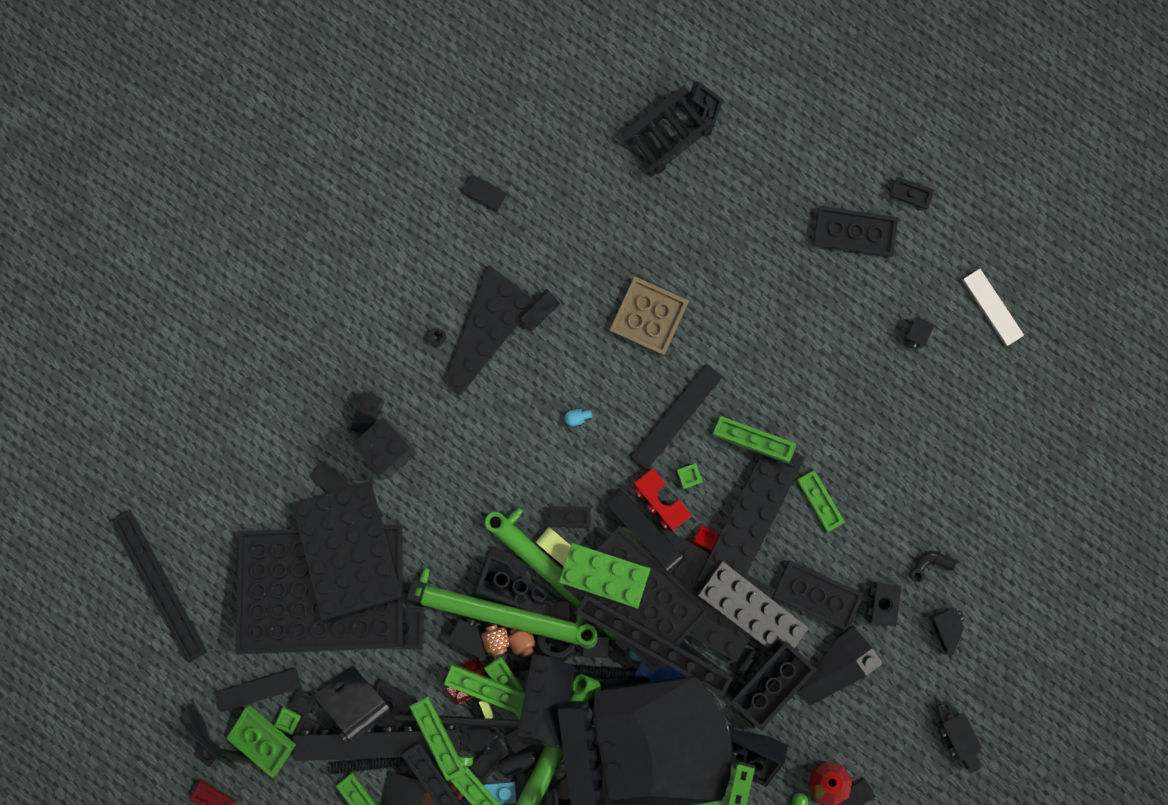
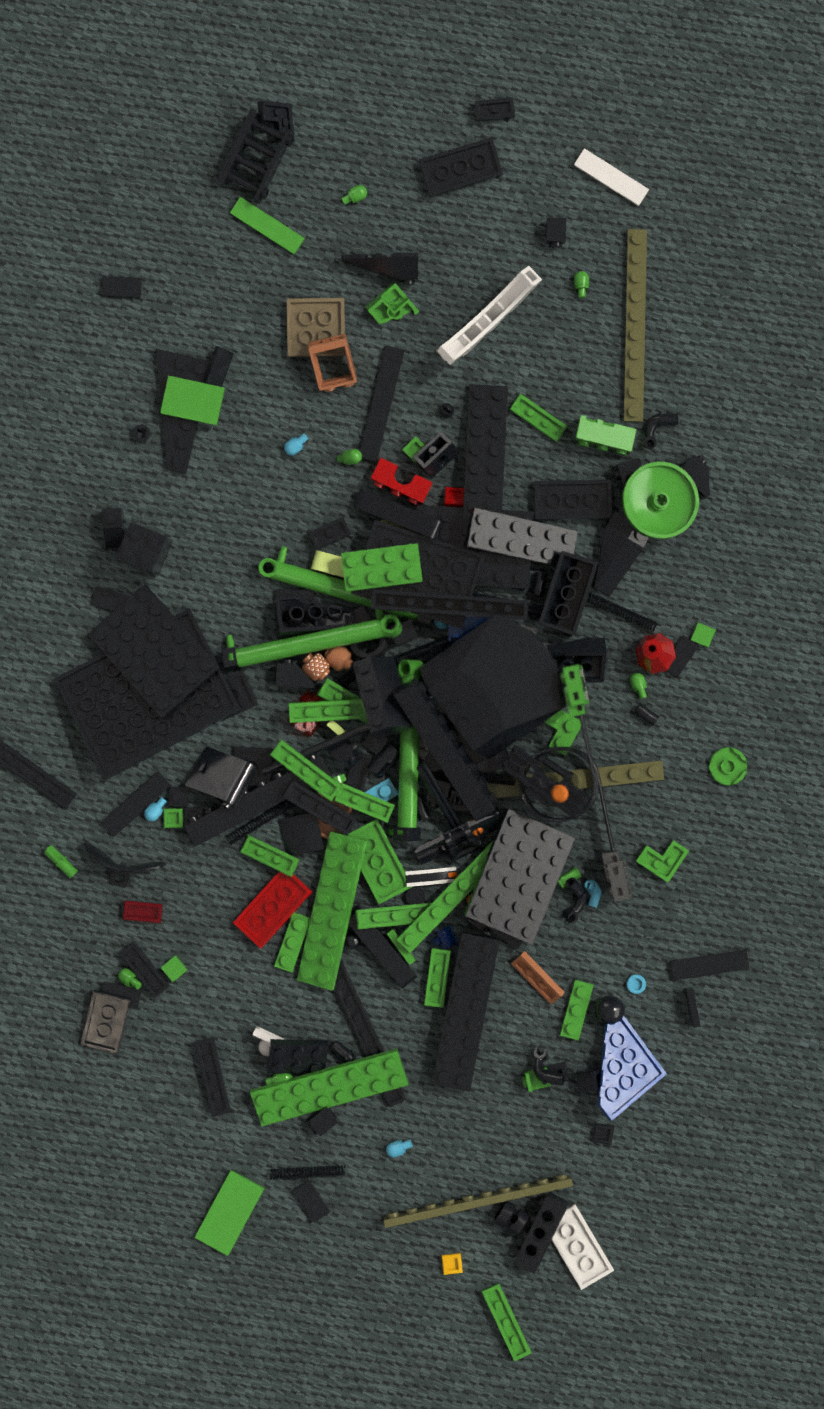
camera: 20 degrees left, 5 degrees up
(158, 711) = (60, 861): none -> bright green axle
(261, 741) = (159, 844): bright green plate -> none
(273, 704) = (154, 810): none -> medium azure cylinder
(499, 329) = (192, 400): none -> bright green tile
(624, 453) = (350, 457): none -> bright green cylinder
(648, 200) = (267, 225): none -> bright green tile
(653, 337) = (328, 344): none -> nougat window
(707, 490) = (436, 455): none -> black brick
(722, 330) = (385, 309): none -> bright green slope
(732, 455) = (443, 413): none -> black hinge
(744, 210) = (355, 194): none -> bright green cylinder
(754, 296) = (399, 267): none -> black wedge
(754, 439) = (456, 391): bright green plate -> none
(818, 724) = (624, 610): none -> black piece
(821, 383) = (490, 316): none -> white arch
(877, 548) = (605, 435): none -> bright green wedge
(884, 787) = (703, 634): none -> bright green tile
(904, 638) = (660, 500): none -> bright green dish
(919, 393) = (581, 283): none -> bright green cylinder
(952, 457) = (635, 325): none -> olive plate
(960, 736) = (746, 560): black hinge -> none

